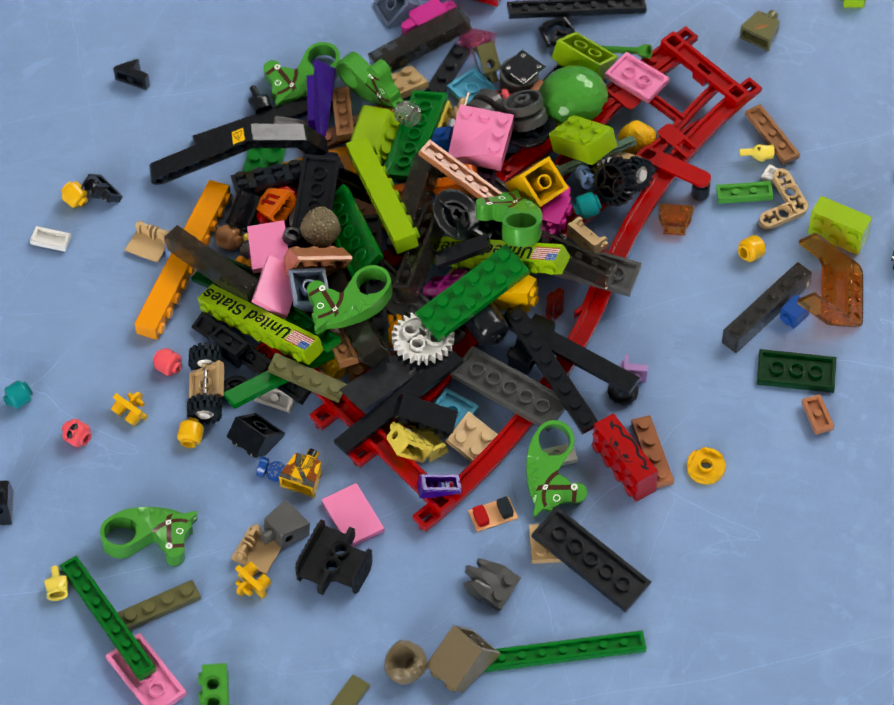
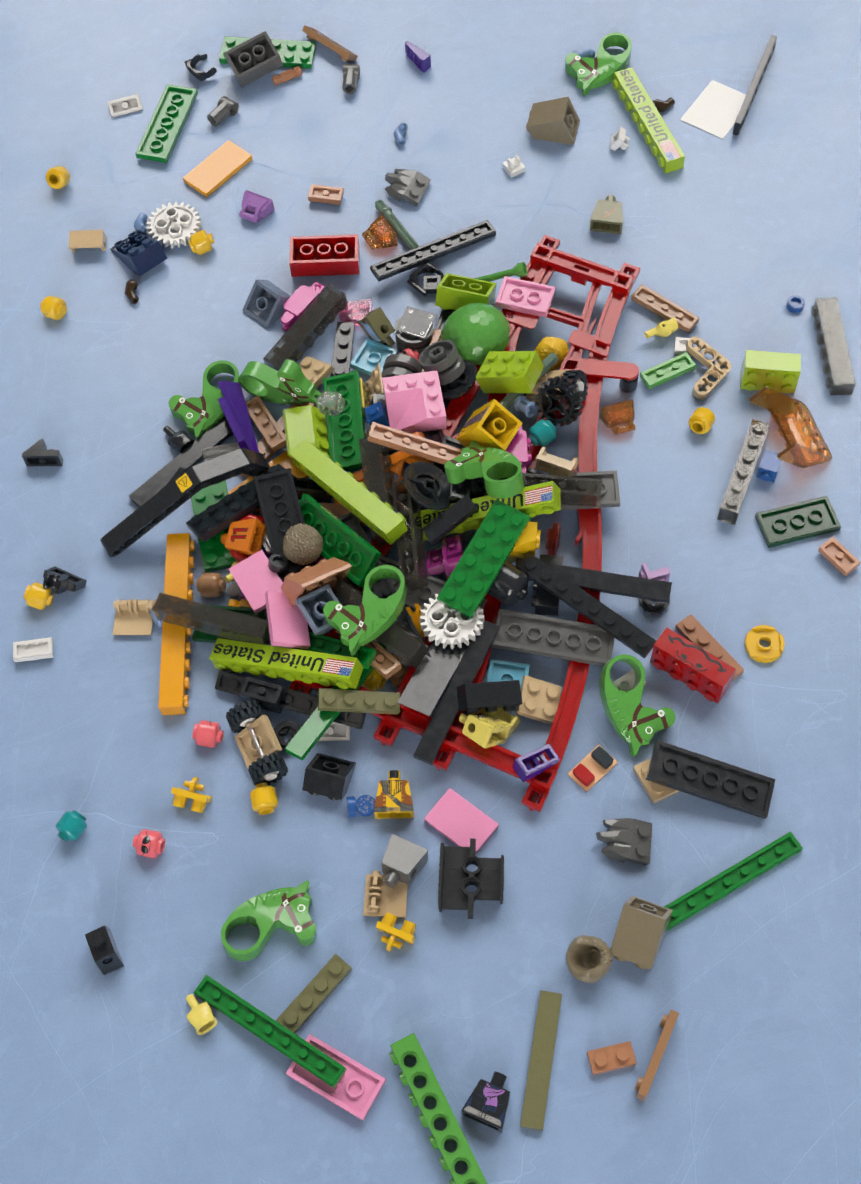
camera: 20 degrees left, 5 degrees up
(242, 210) = (215, 553): black hinge -> none

